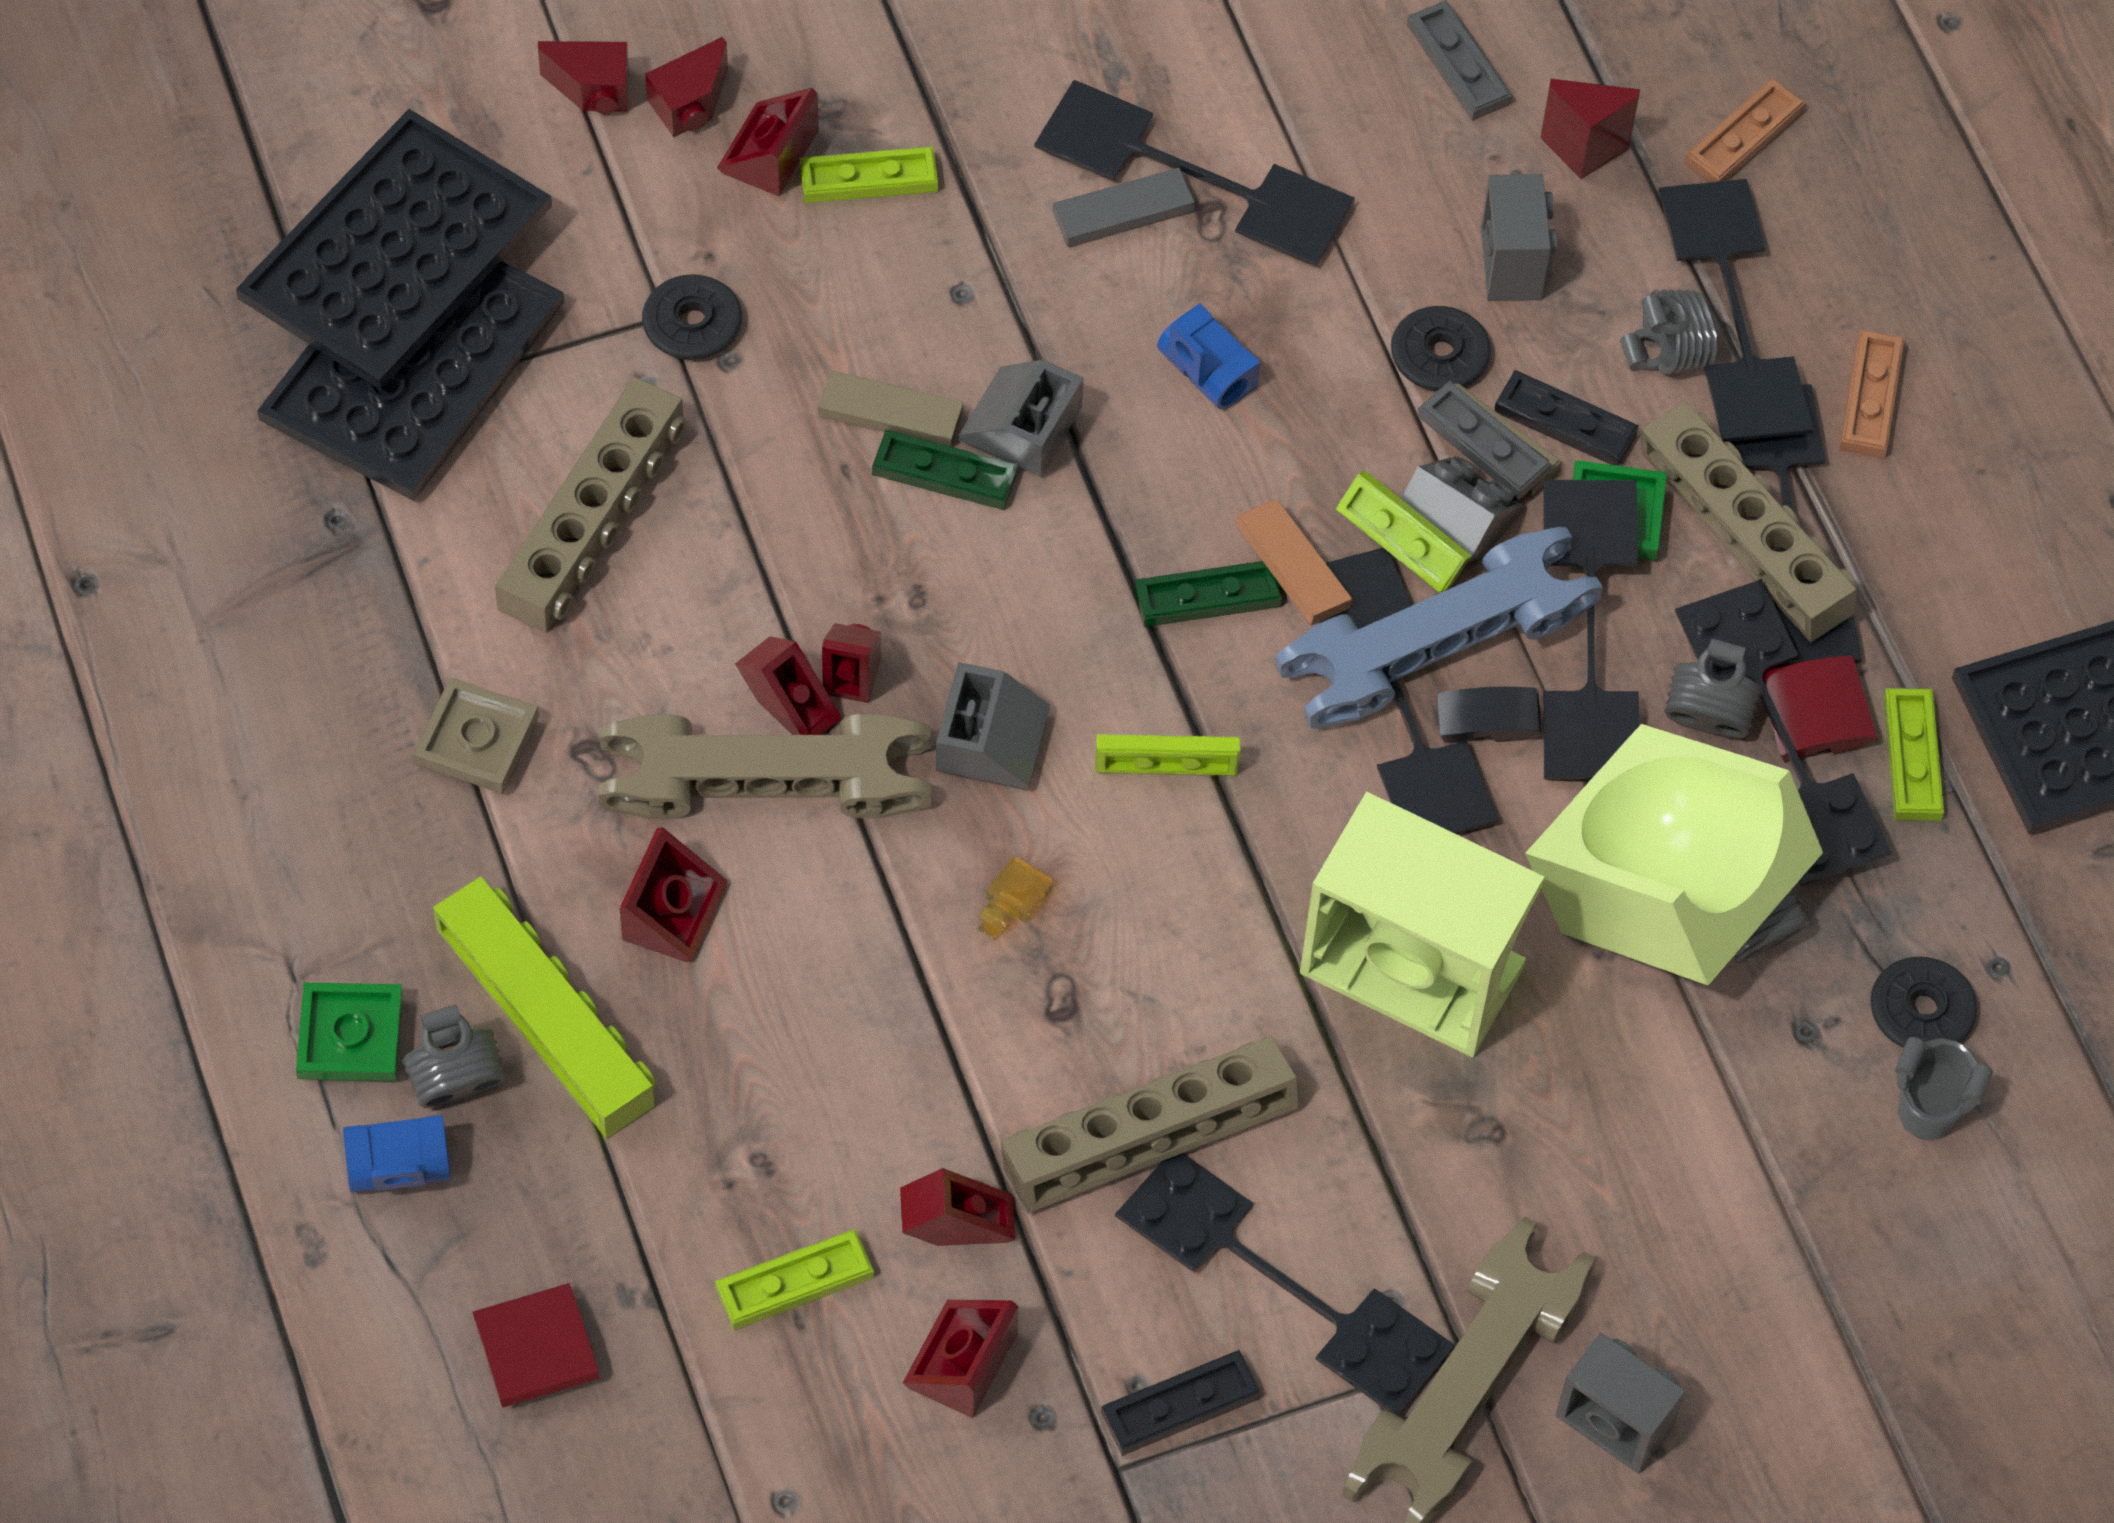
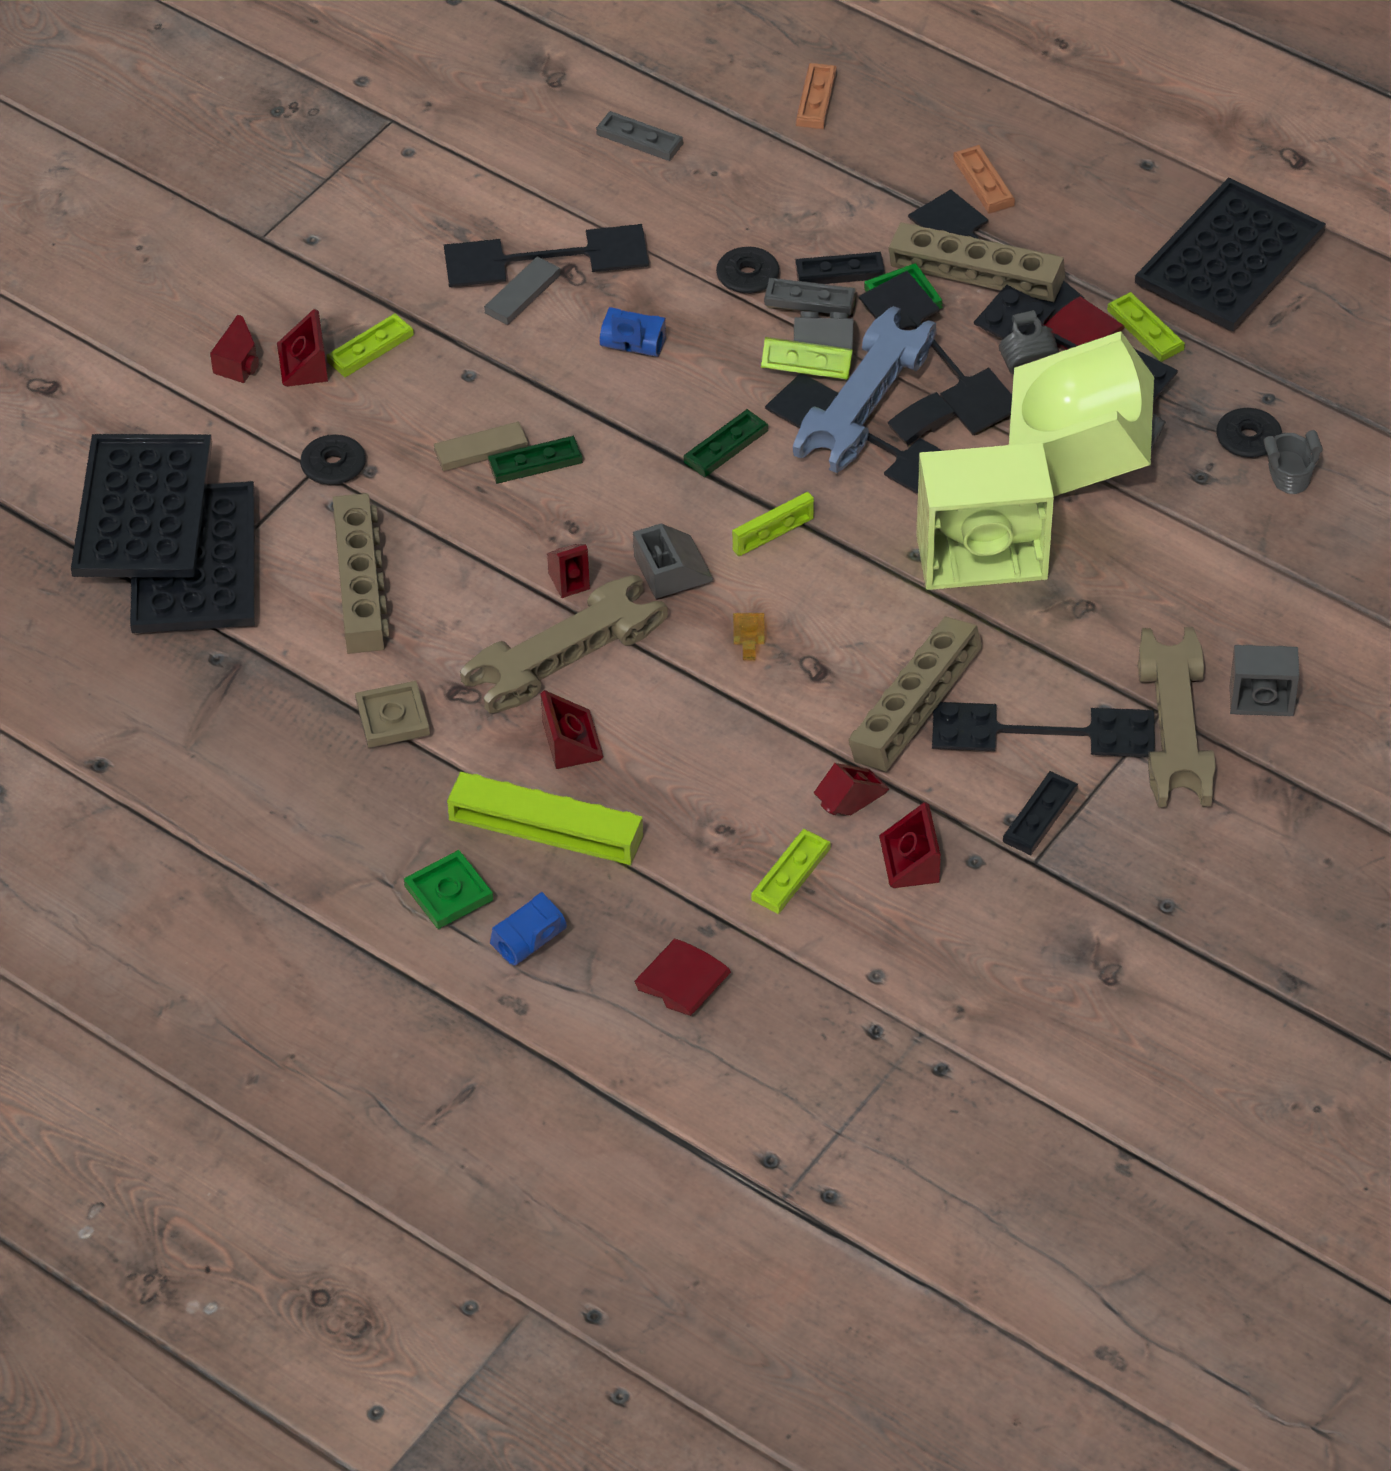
camera: 30 degrees left, 10 degrees down
(453, 1073) = (520, 875): dark grey piece -> none
(588, 72) = (172, 373): dark red slope -> none
(788, 687) = (543, 598): dark red slope -> none
(1025, 414) = (558, 407): dark grey slope -> none
(1293, 561) = (761, 401): nougat tile -> none
(1517, 237) = (747, 194): dark grey brick -> none
(1588, 123) = (736, 125): dark red slope -> none
(1681, 328) = (864, 195): dark grey piece -> none
(1753, 394) = (928, 206): black hinge -> none

